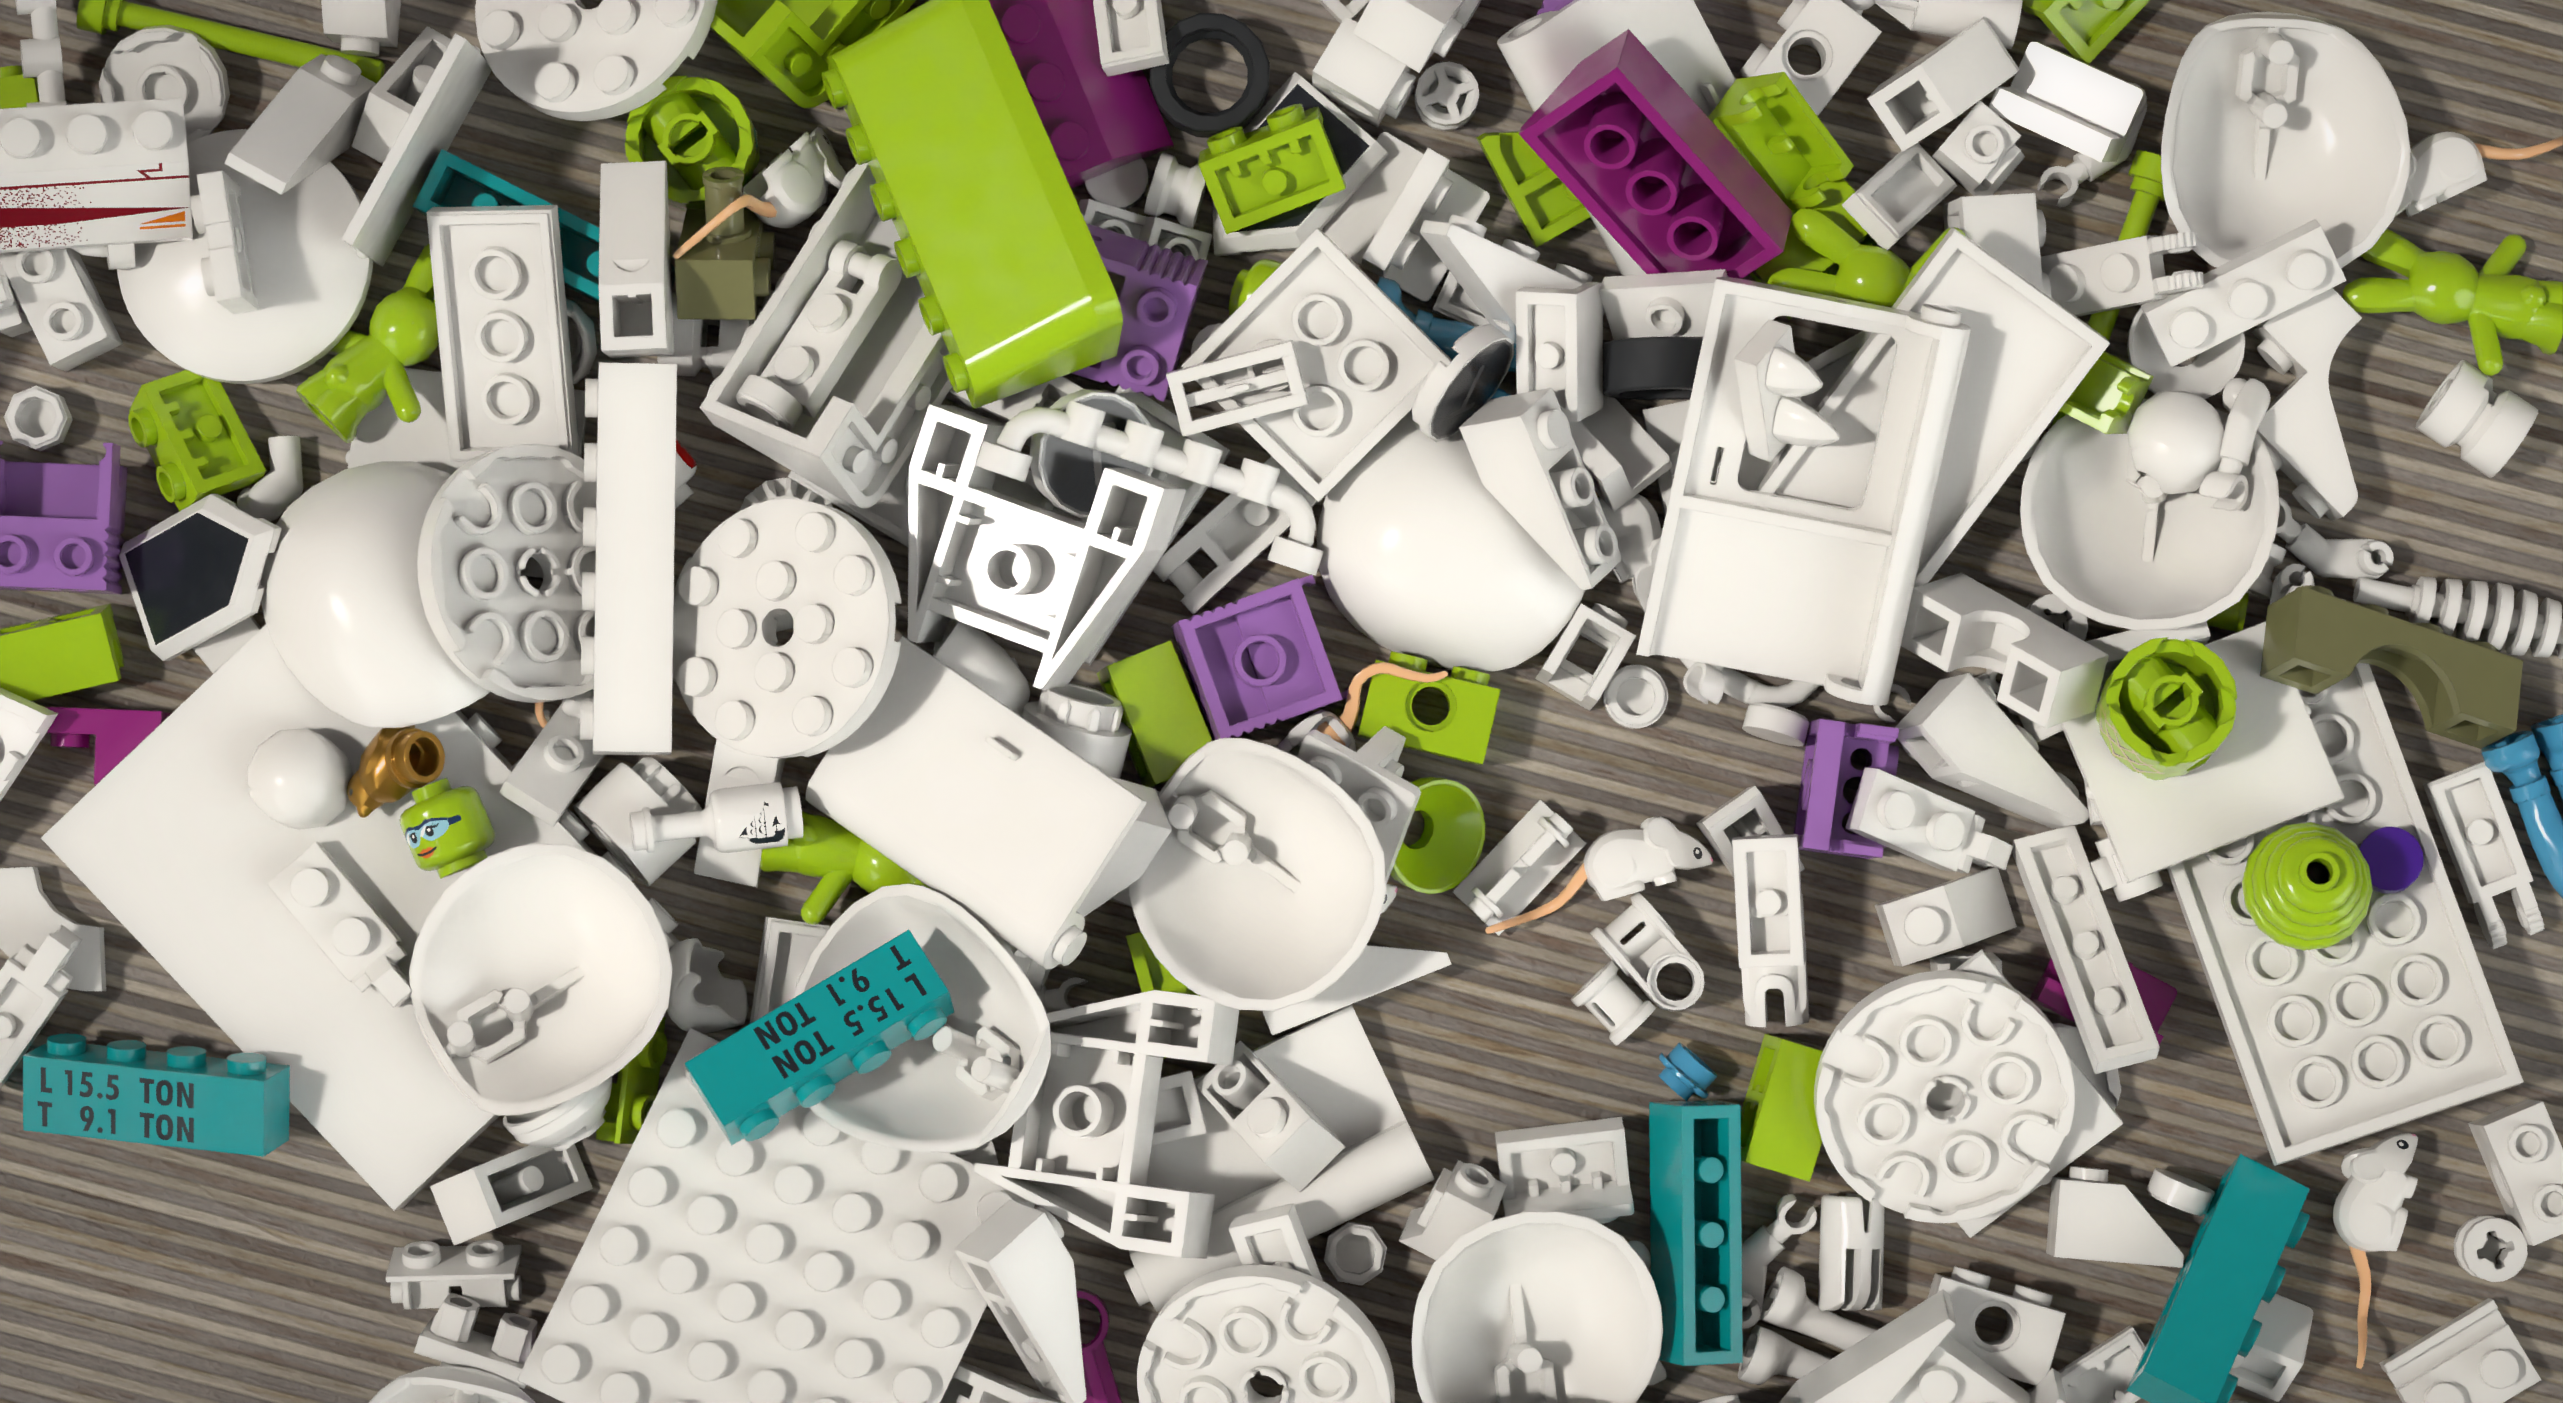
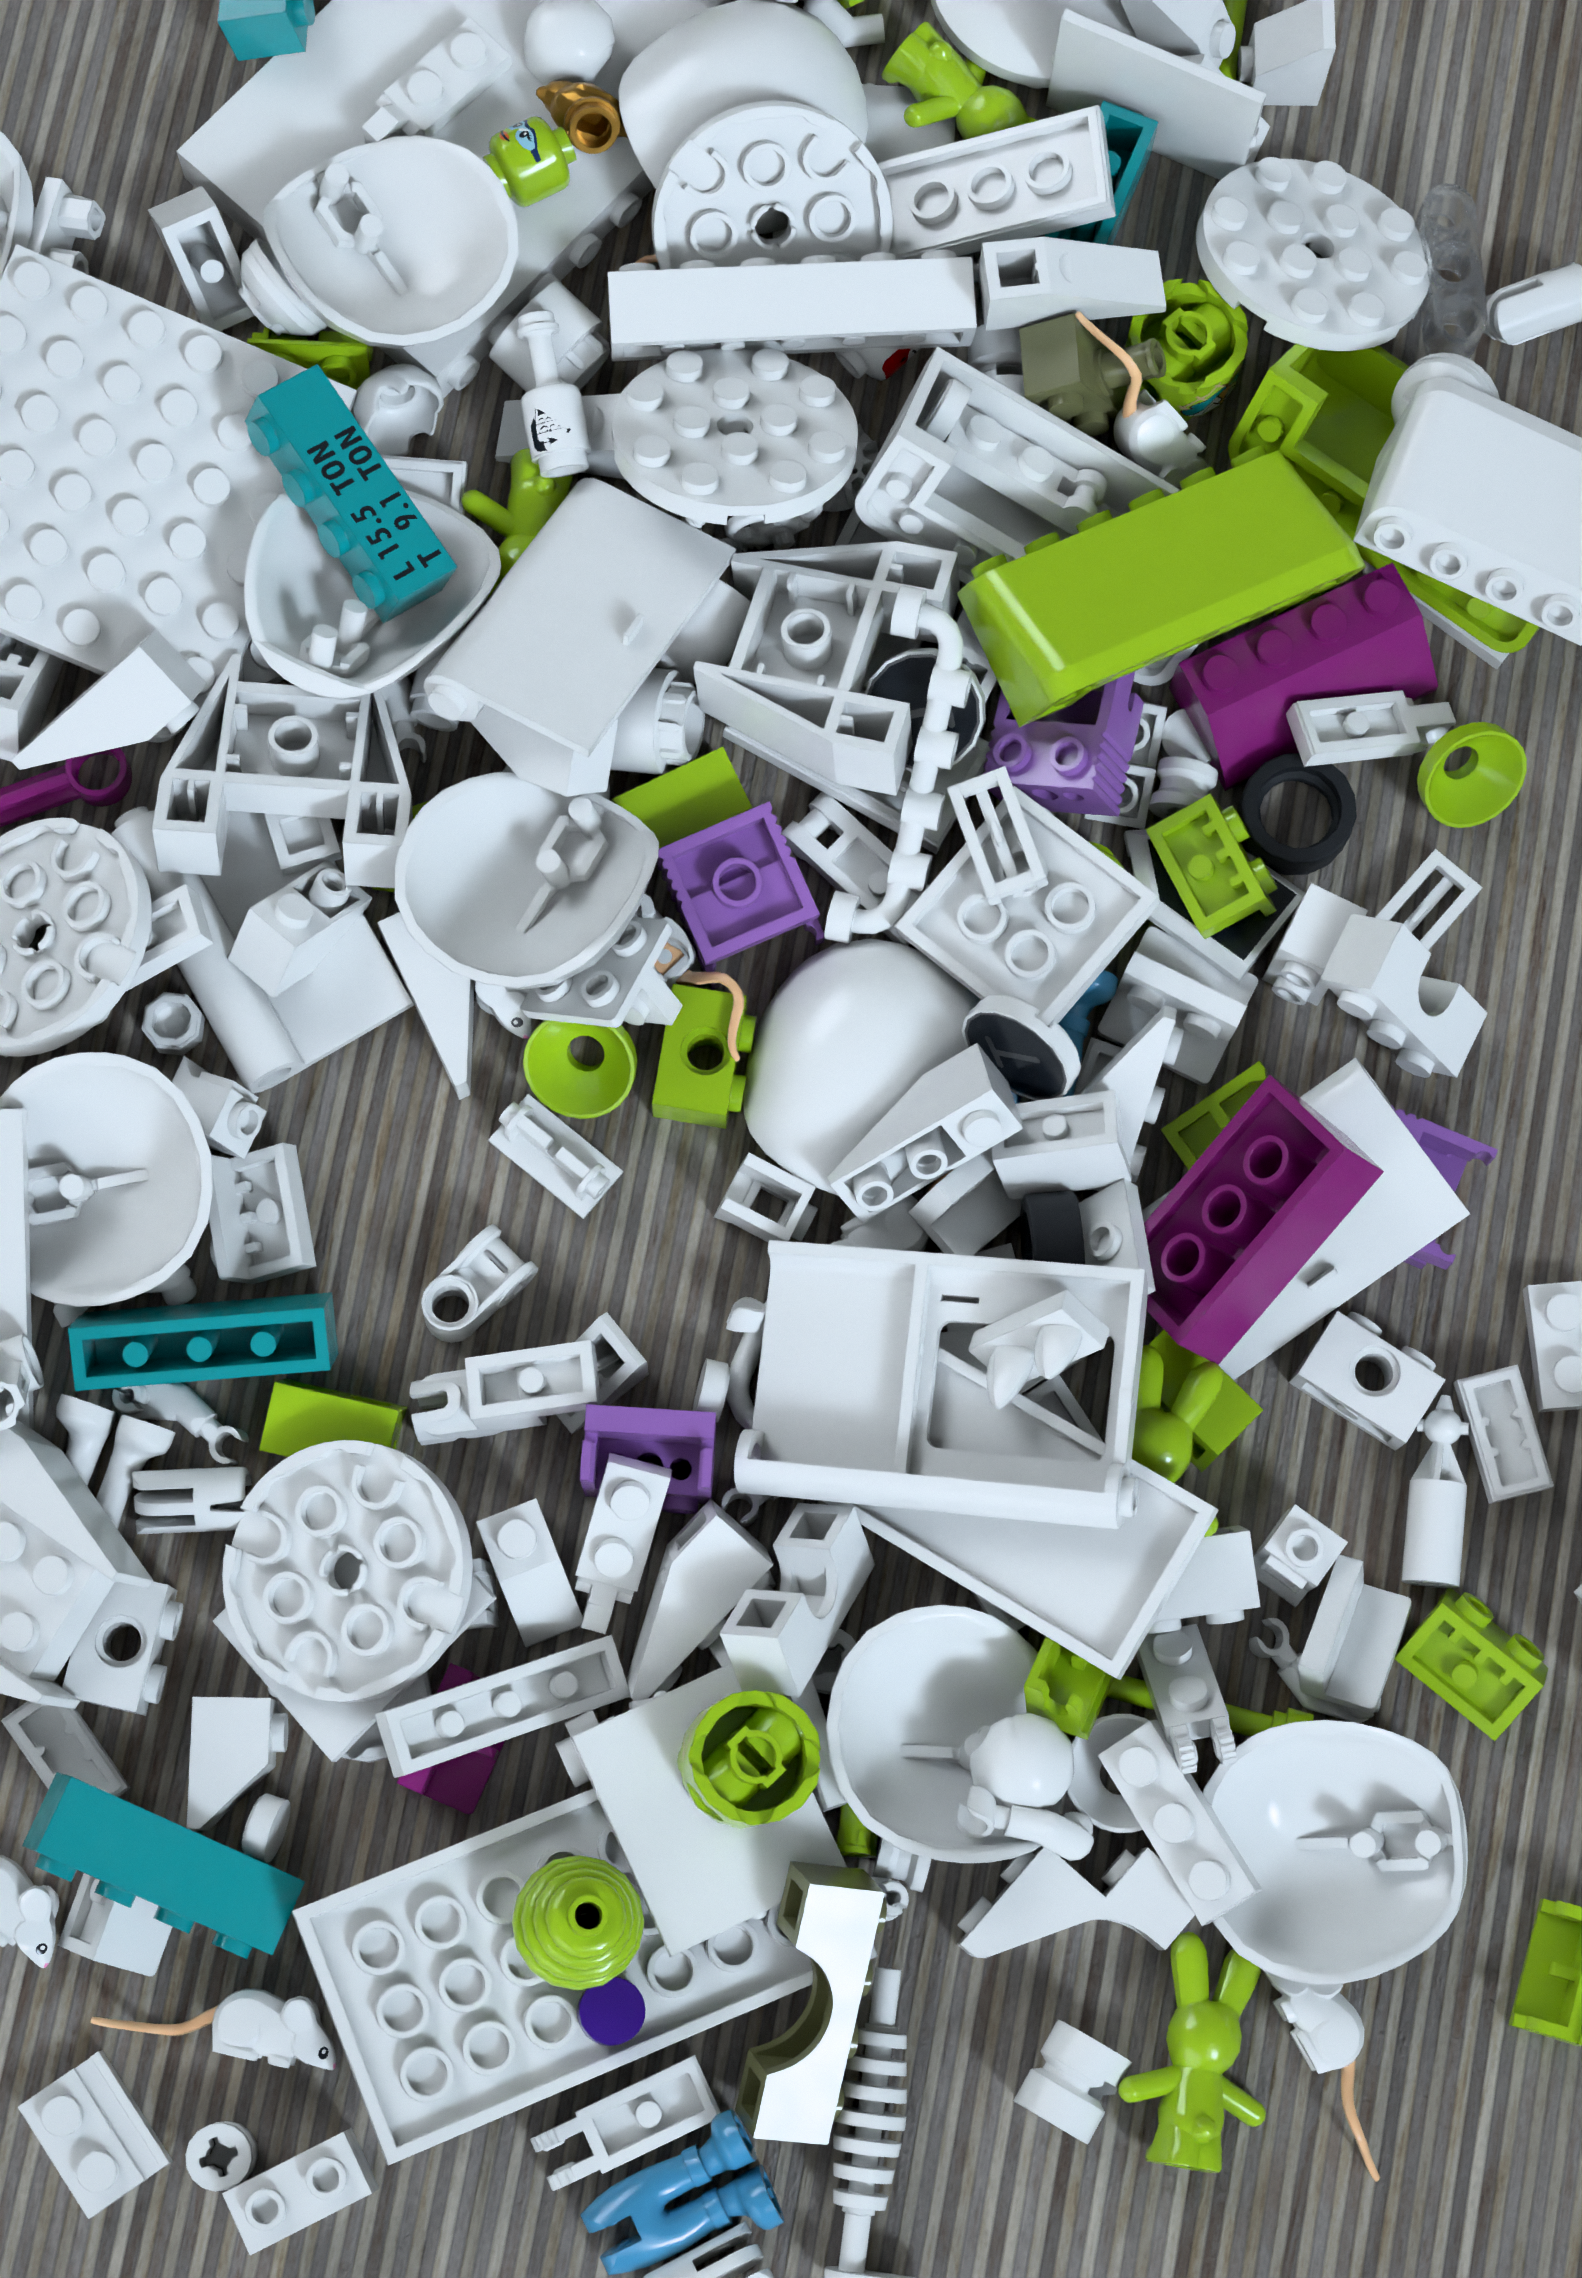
camera: 80 degrees right, 10 degrees down
(425, 1272) = (124, 196): white hinge -> none
(552, 769) = (583, 257): white plate -> none
(1444, 85) = (1308, 1027): white wheel -> none
(1613, 1003) = (427, 1251): white bush -> none
(1623, 863) = (564, 1252): white animal -> none
(1635, 697) = (729, 1257): white tile -> none
(1686, 1072) = (363, 1328): dark azure plate -> none
(1781, 138) = (1288, 1345): lime hinge -> none
(1899, 195) = (1244, 1473): white tile -> none
(1942, 84) = (1359, 1507): white slope -> none
(2333, 556) = (919, 1938): white arm -> none

